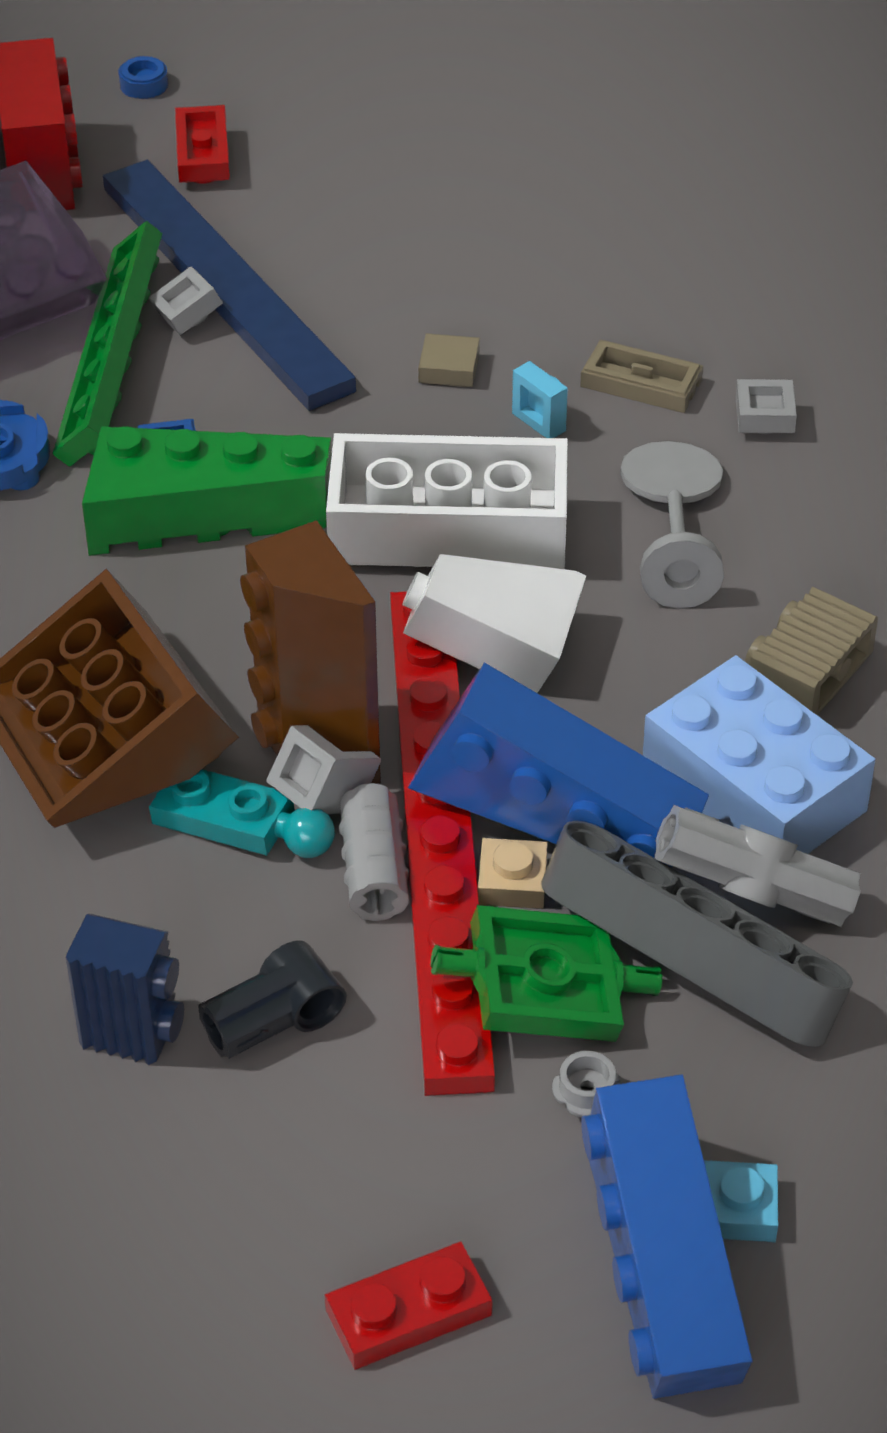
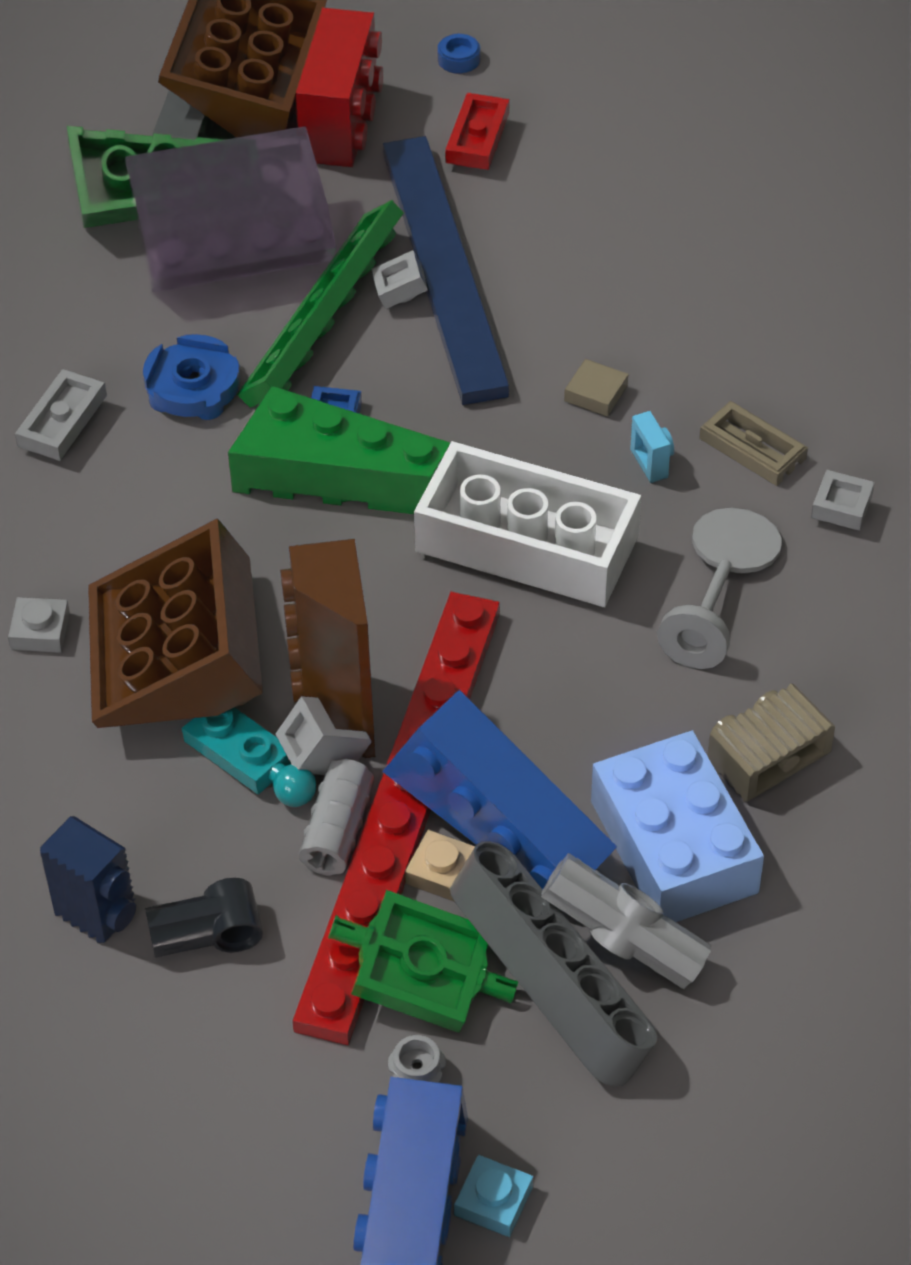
camera: 20 degrees right, 5 degrees up
(408, 1305) = (203, 1199): red plate -> none
(495, 614) = (518, 637): white slope -> none

